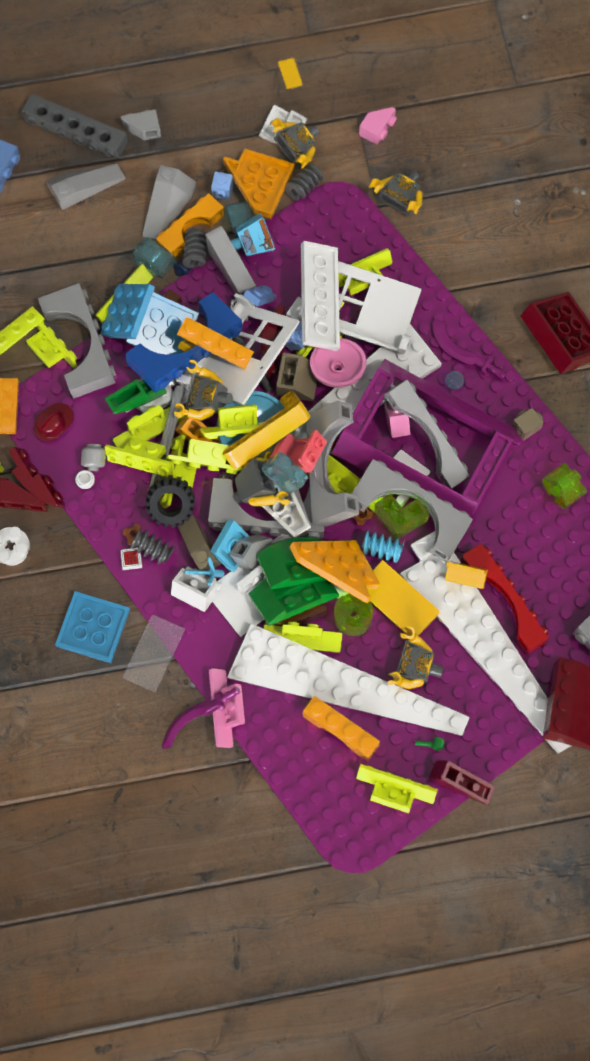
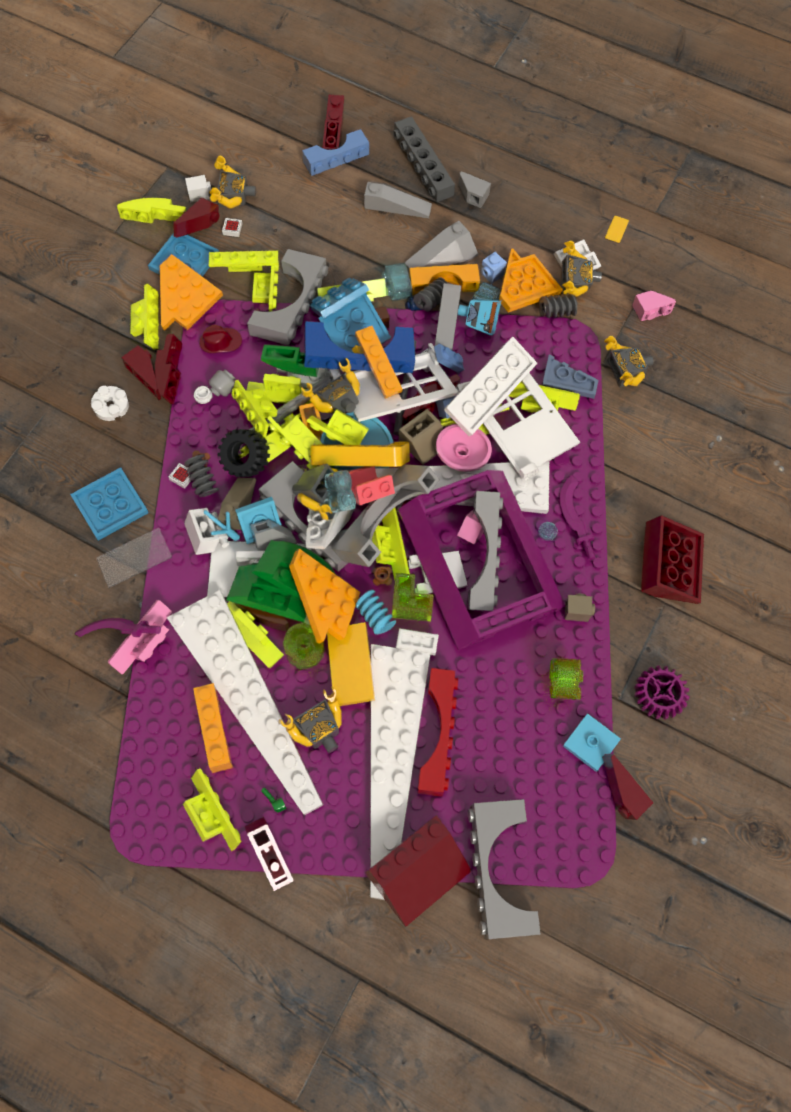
camera: 35 degrees right, 5 degrees down
(364, 242) = (562, 377): none -> sand blue wing
(448, 521) = (413, 557): light grey arch -> none
(466, 574) = (419, 685): yellow panel -> none

